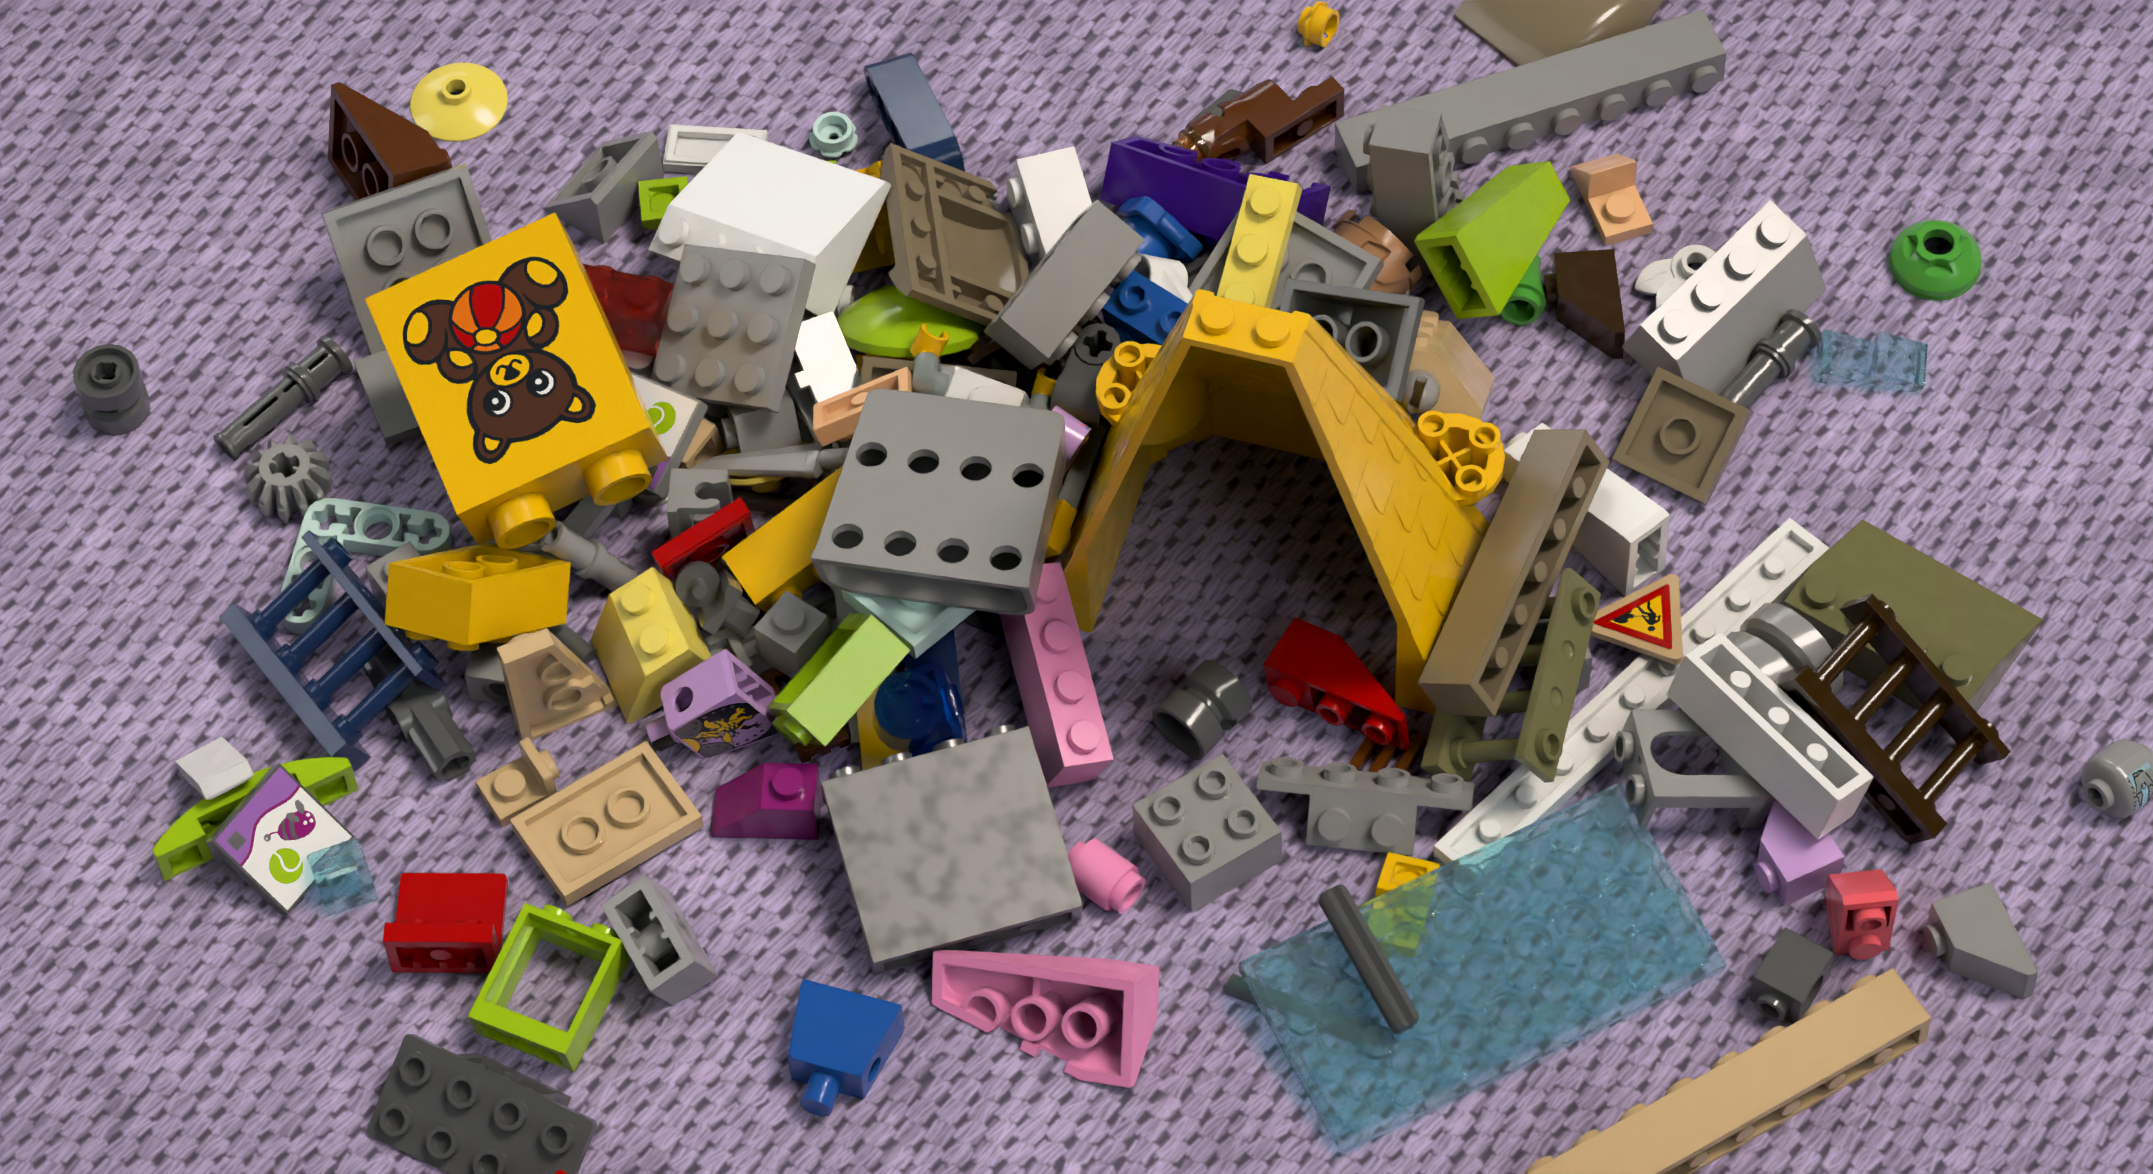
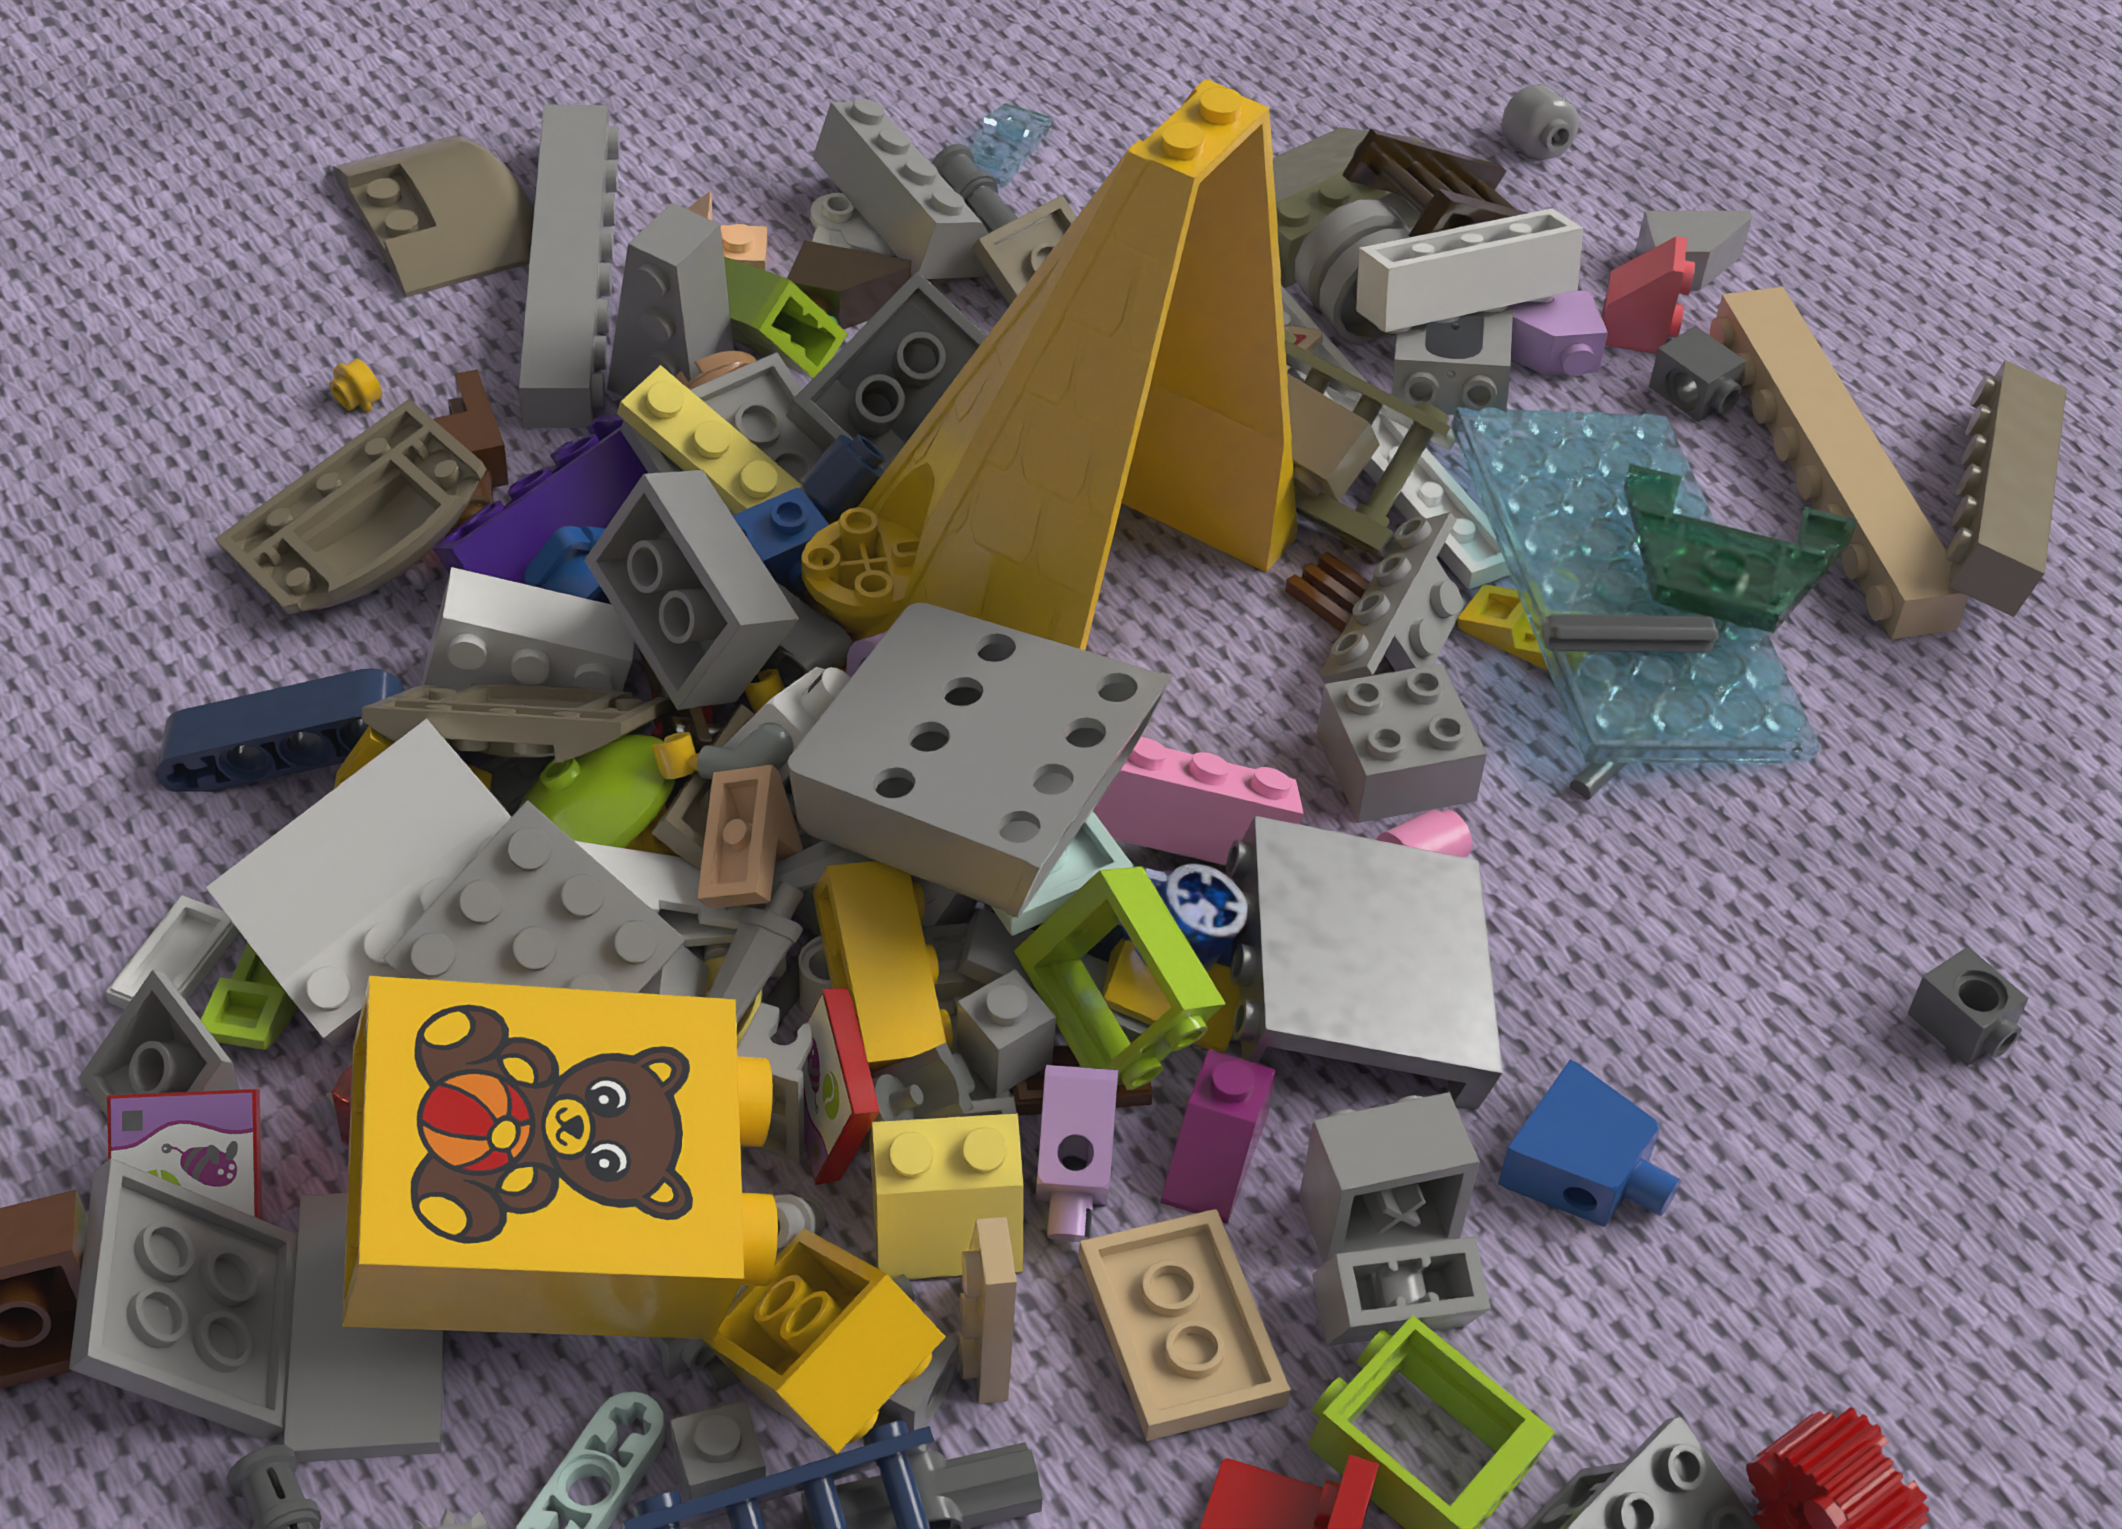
camera: 80 degrees left, 10 degrees down
(519, 783) = (1084, 1408): tan bracket -> none
(534, 195) = (194, 1141): none -> tile
(746, 905) = (1388, 1176): none -> light grey brick
(829, 125) = (227, 820): light aqua plate -> none
(1076, 1008) = (1592, 916): bright pink wedge -> none
(1152, 76) = (357, 514): none -> dark tan slope
(1203, 708) = (1236, 704): dark grey wheel -> none
(1327, 678) = (1240, 590): red slope -> none
(1488, 1024) = (1726, 569): none -> clear green wing
(1931, 274) = (907, 81): bright green piece -> none

